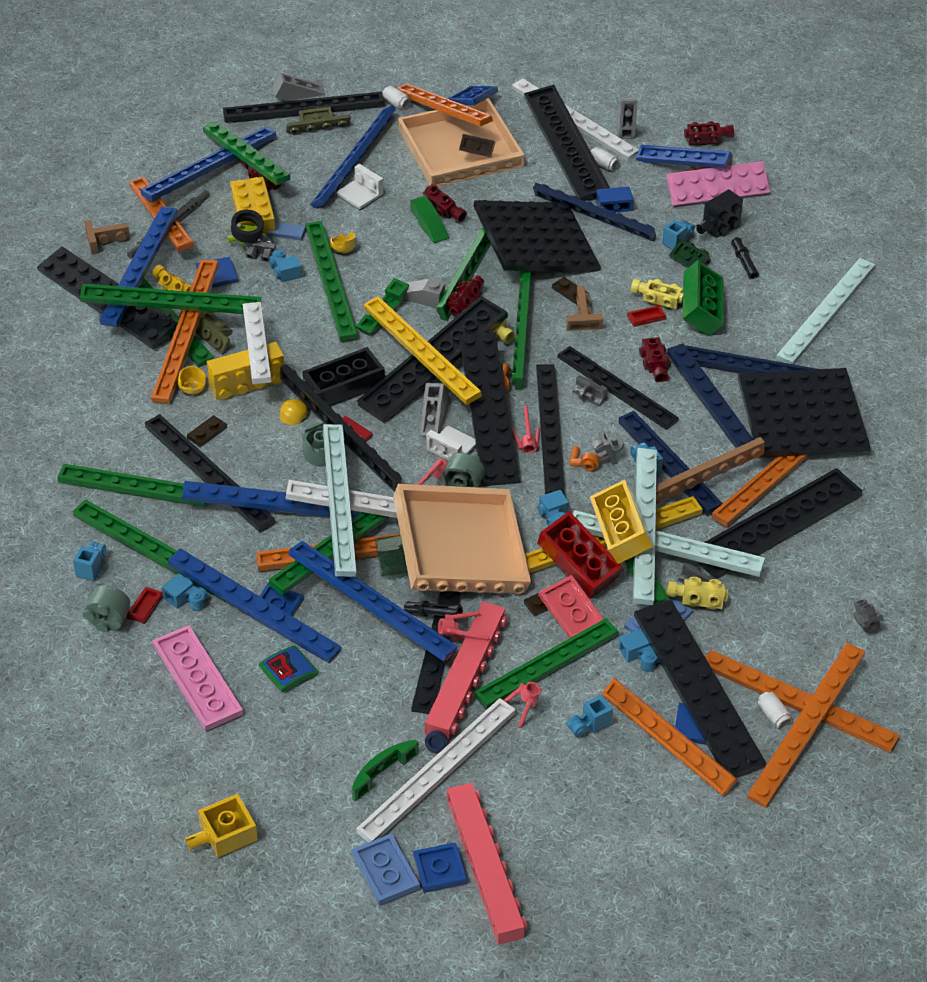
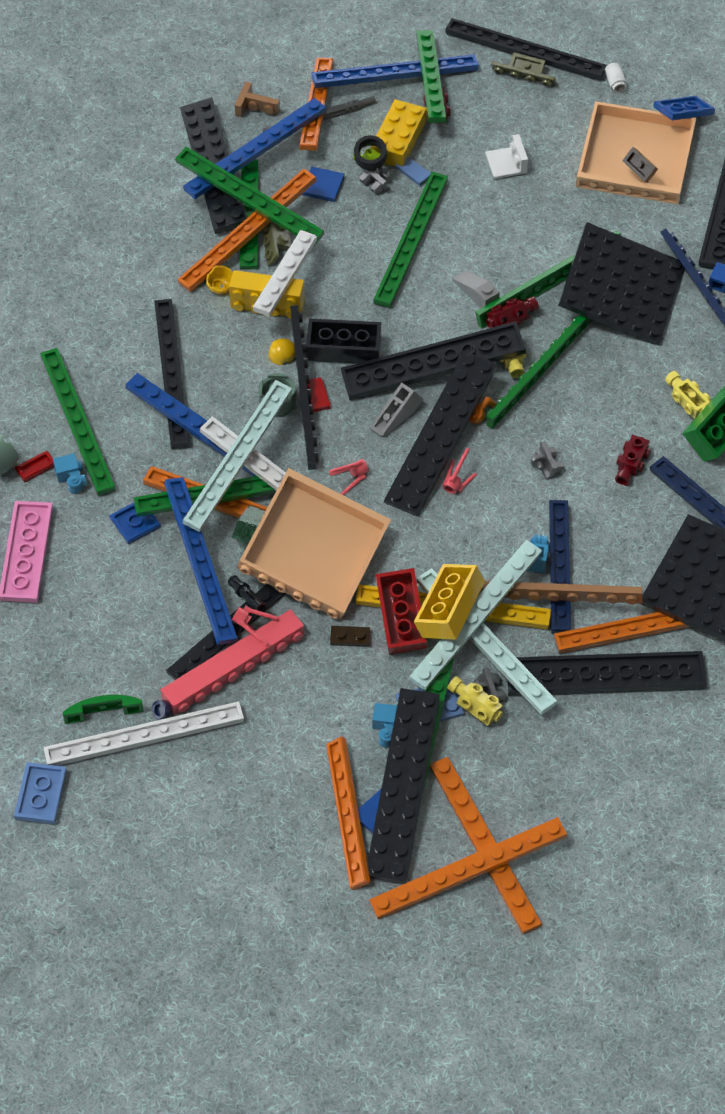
camera: 35 degrees right, 10 degrees up
(88, 560) = (18, 407): dark azure brick -> none
(123, 483) = (95, 345): green plate -> none
(169, 280) = (274, 175): yellow brick -> none
(206, 431) = (200, 333): dark brown plate -> none
(254, 605) = (113, 513): blue plate -> none
(285, 267) = (383, 207): dark azure brick -> none
(288, 668) = (99, 582): slope -> none
(294, 88) = (531, 26): light grey slope -> none
(343, 244) = (450, 207): yellow hair -> none
(351, 160) = (535, 119): blue plate -> none
(393, 297) = (434, 291): green slope -> none
(422, 350) = (423, 349): yellow plate -> none
(428, 219) = (543, 219): green slope -> none
(439, 867) = (81, 816): blue plate -> none
(442, 205) = (567, 208): dark red brick -> none
(445, 105) = (646, 107): orange tile -> none
(449, 442) = (386, 450): white bracket -> none
(463, 471) = (369, 484): sand green brick -> none
(486, 864) = (116, 833): coral brick -> none
(529, 694) = (255, 713): coral plant -> none
(547, 662) = (304, 692): green plate -> none
(549, 428) = (481, 482): black plate -> none
(553, 506) = (422, 555): dark azure brick -> none
(566, 288) = (614, 353): dark brown plate -> none
(570, 606) = (362, 654): coral tile -> none
(584, 319) = (600, 388): medium nougat bracket -> none
(588, 461) = (488, 527): orange plate -> none
(595, 716) = (298, 762): dark azure brick -> none
(605, 449) = (511, 524): flat silver hips -> none
(618, 388) = (576, 470): black tile -> none
(646, 316) = (661, 412): red tile -> none
(709, 395) = (648, 521): dark blue plate -> none
(774, 710) = (454, 840): white head -> none
(867, 616) = (604, 803): flat silver hips -> none

